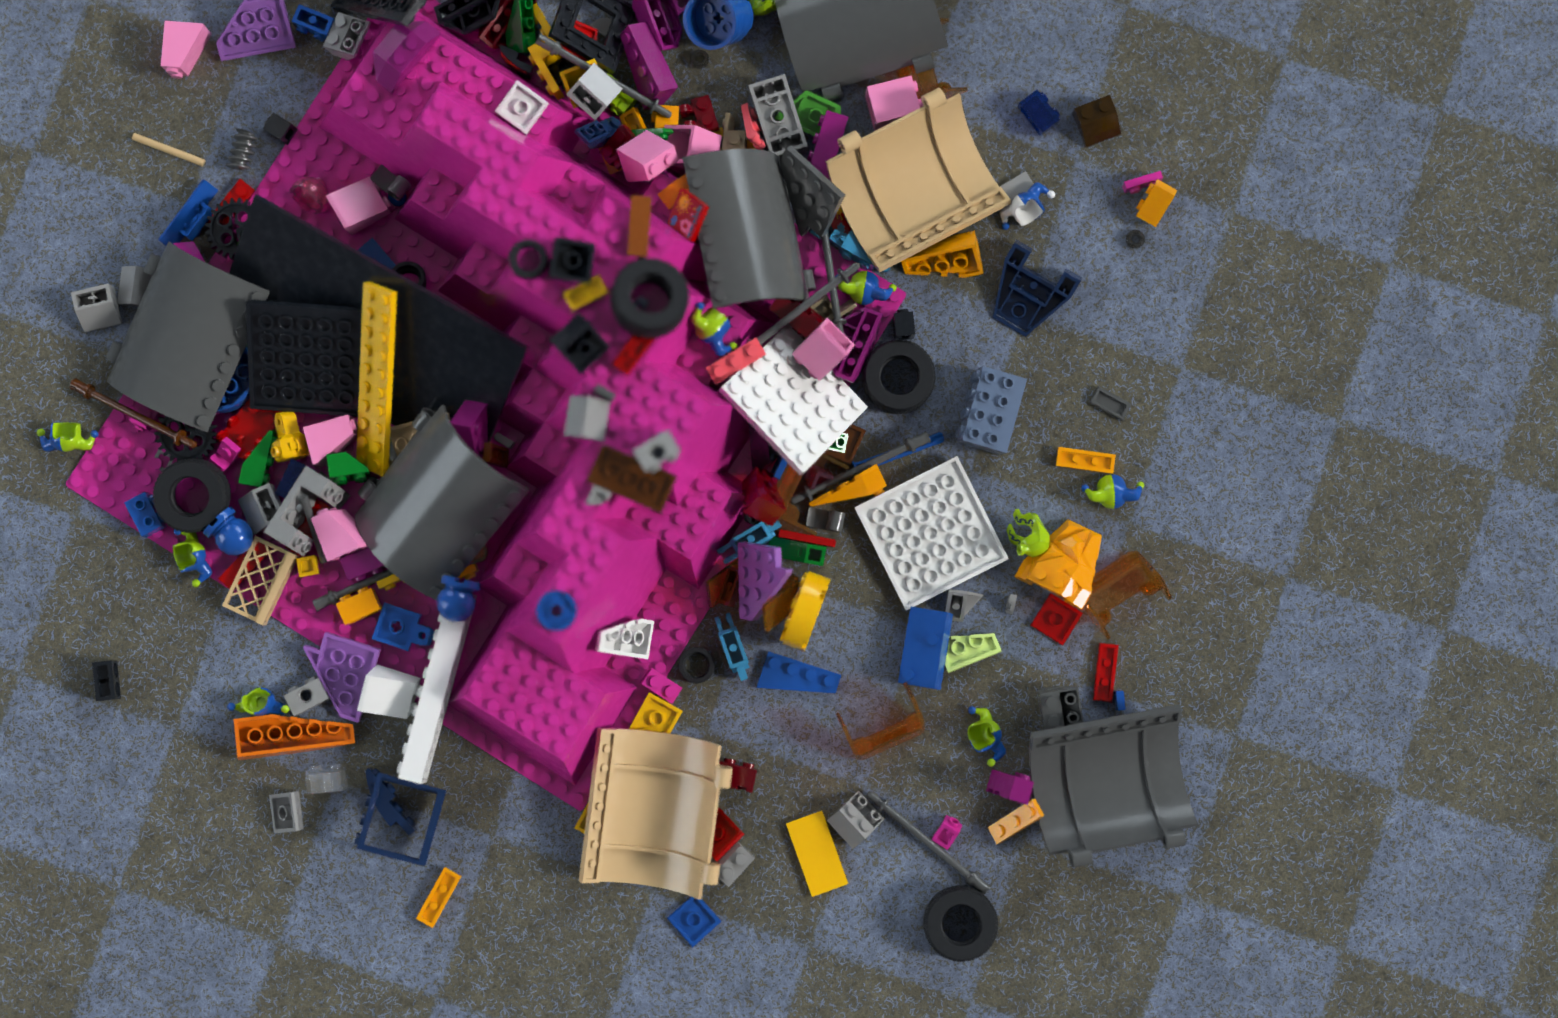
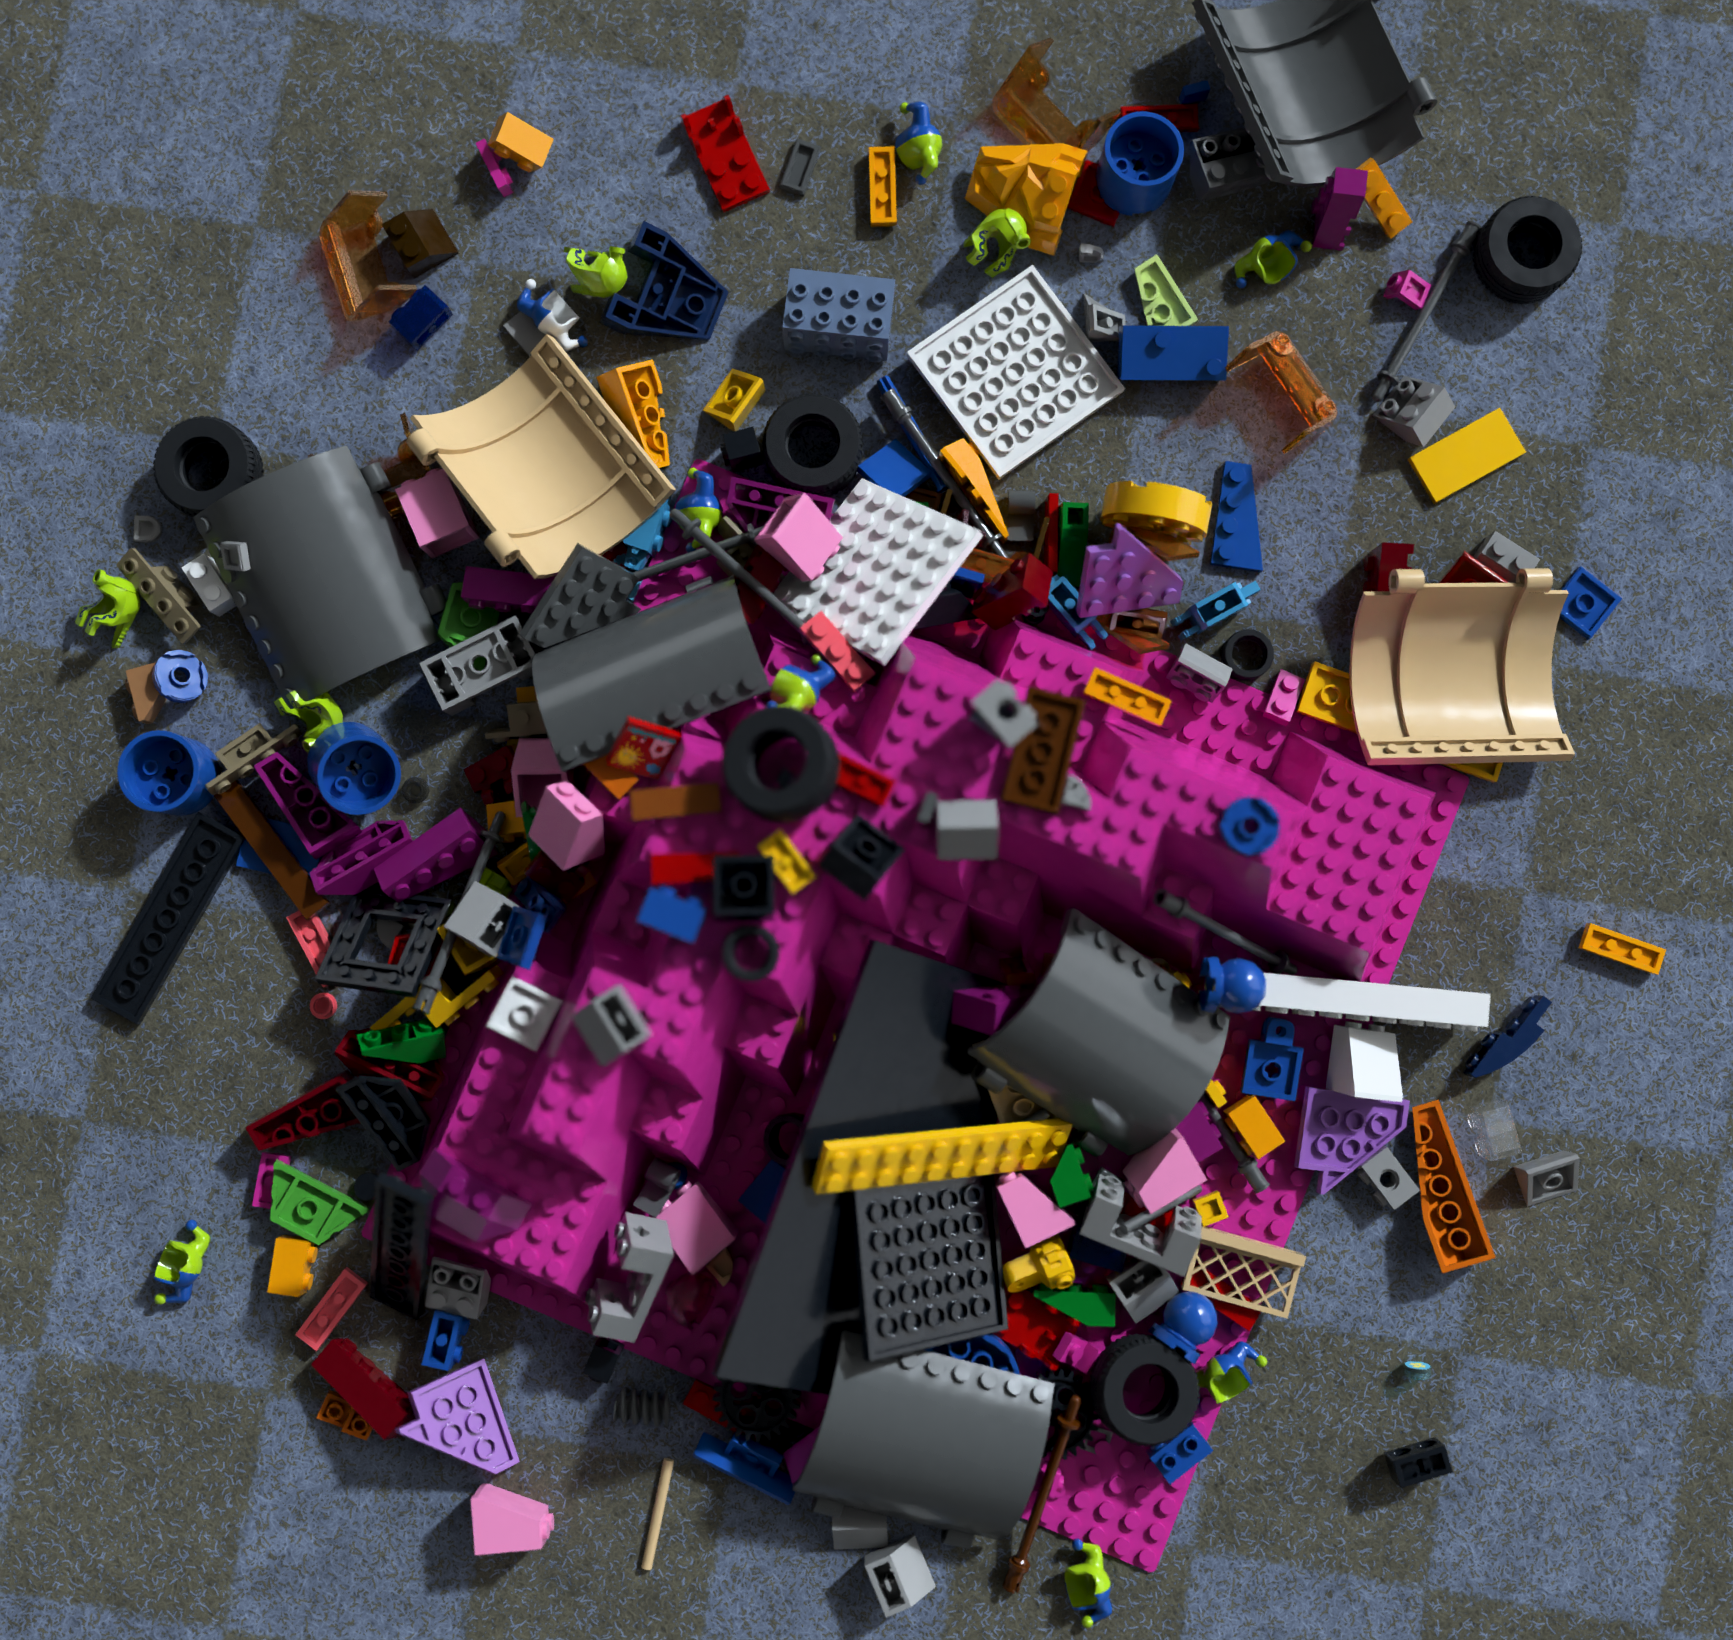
camera: 100 degrees left, 0 degrees up
(169, 693) = (1417, 1370): none -> clear light blue tile
(259, 703) = (1410, 1241): lime piece -> none
(313, 143) = (621, 1308): none -> light grey plate
(328, 219) = (721, 1266): none -> tile
(366, 819) = (1587, 1005): dark blue window -> none
(496, 160) = (611, 1025): none -> light grey slope
(504, 441) = (991, 965): light grey tile -> none
(512, 60) = (454, 1049): black slope -> none
(515, 565) = (1179, 906): none -> dark grey bar
(562, 211) = (673, 914): none -> blue brick
(575, 114) = (521, 937): none -> blue tile
(593, 226) = (684, 867): none -> red tile
(627, 639) = (1242, 743): white wedge -> none
(669, 557) = (1127, 697): none -> light orange plate
(687, 624) = (1199, 673): none -> slope
(752, 126) = (500, 696): coral plate -> none
(871, 432) = (894, 469): none -> blue tile
(944, 327) = (735, 398): none -> yellow slope
(1044, 246) = (602, 277): none -> lime piece
(1083, 646) = (1143, 144): none -> blue brick
(1087, 74) = (354, 258): none -> clear orange windscreen
(1128, 350) = (725, 154): none -> red hinge
(1137, 233) = (571, 160): clear smoke plate -> none

